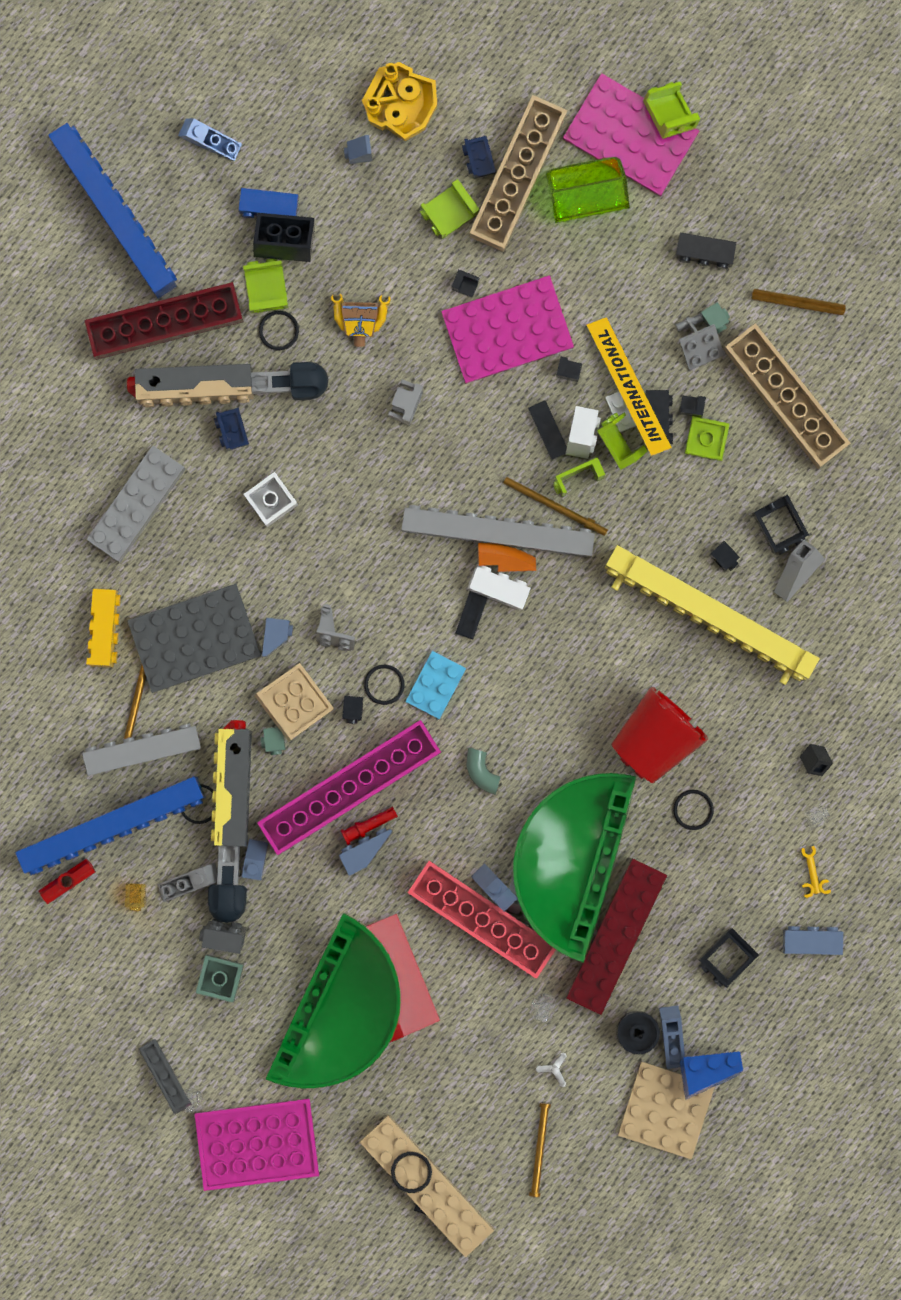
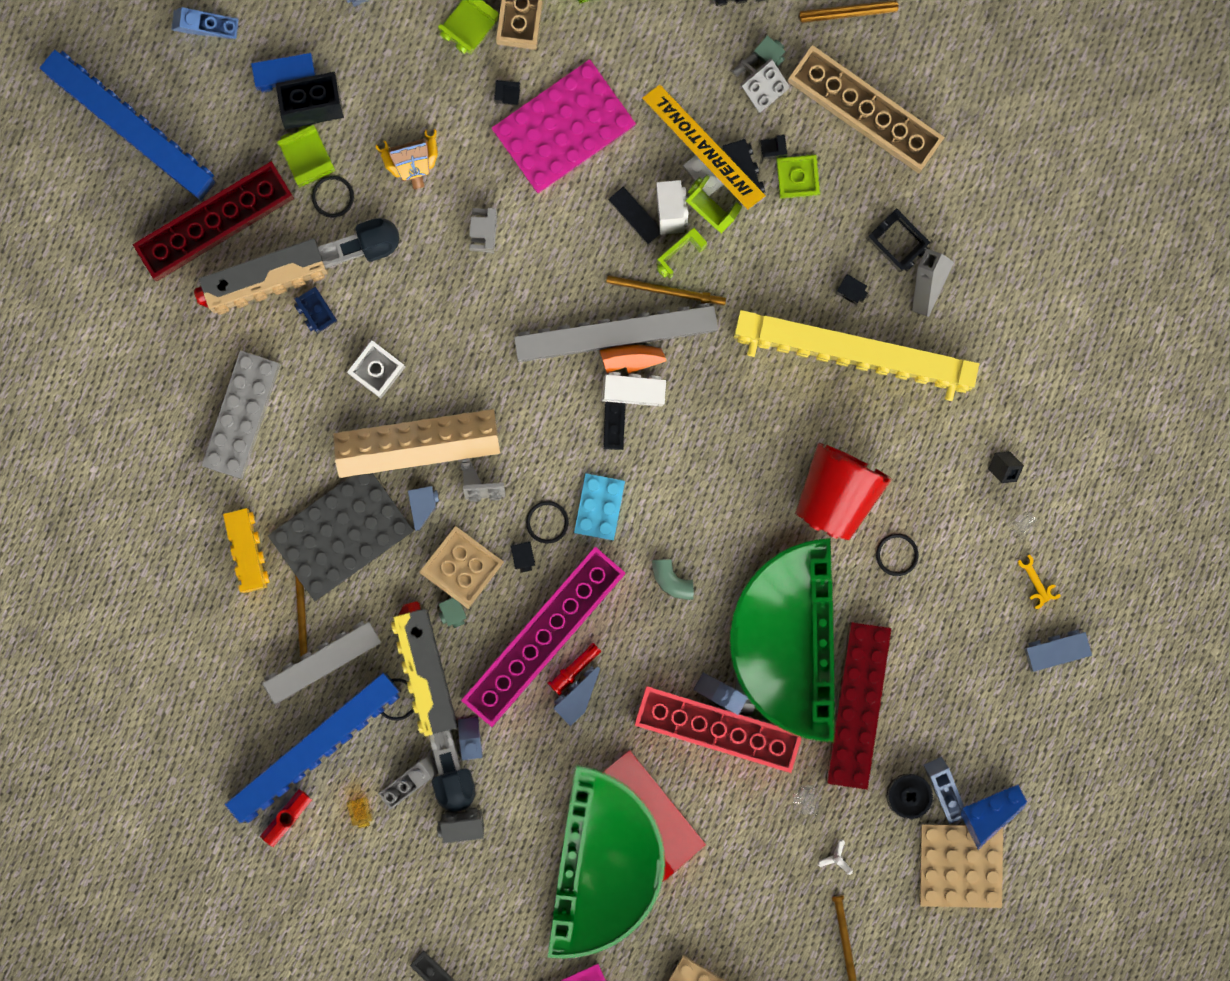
camera: 20 degrees left, 0 degrees up
(220, 978) = (470, 869): sand green brick -> none
(287, 577) = (416, 443): none -> tan brick
(568, 369) = (638, 148): black panel -> none
(707, 966) = (959, 708): black window -> none

